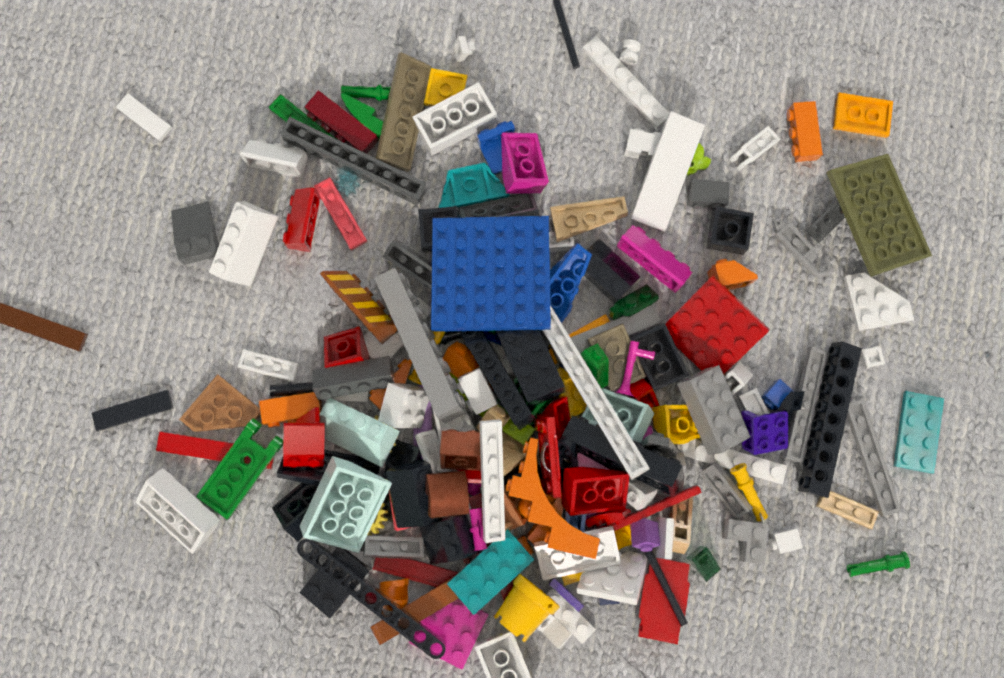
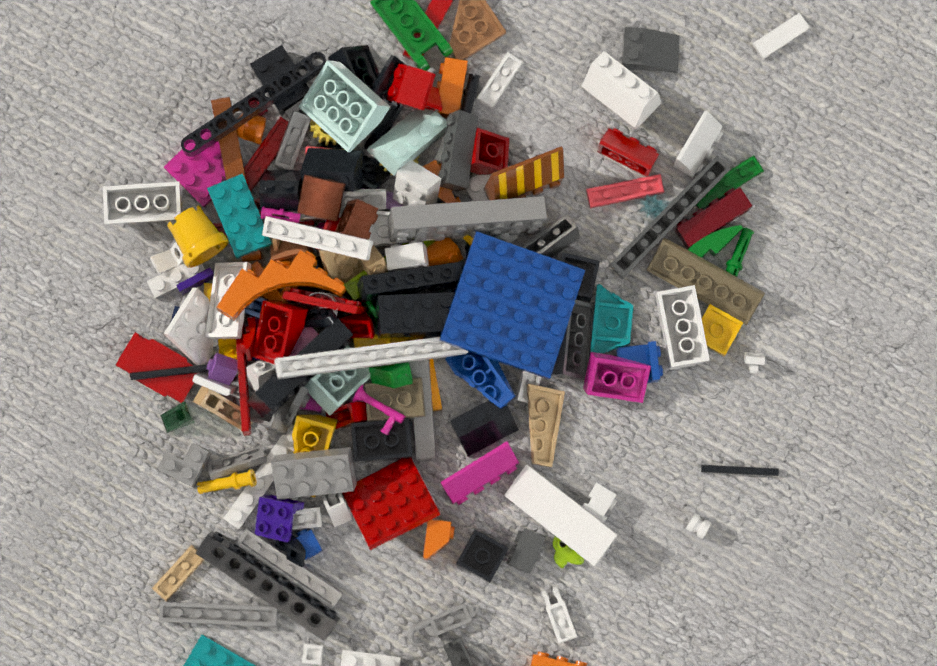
camera: 115 degrees right, 0 degrees up
(626, 82) = (669, 512): white plate -> none
(634, 302) = (443, 437): dark green hinge -> none
(785, 541) = (170, 500): white brick -> none
(886, 563) = (115, 591): green pin -> none

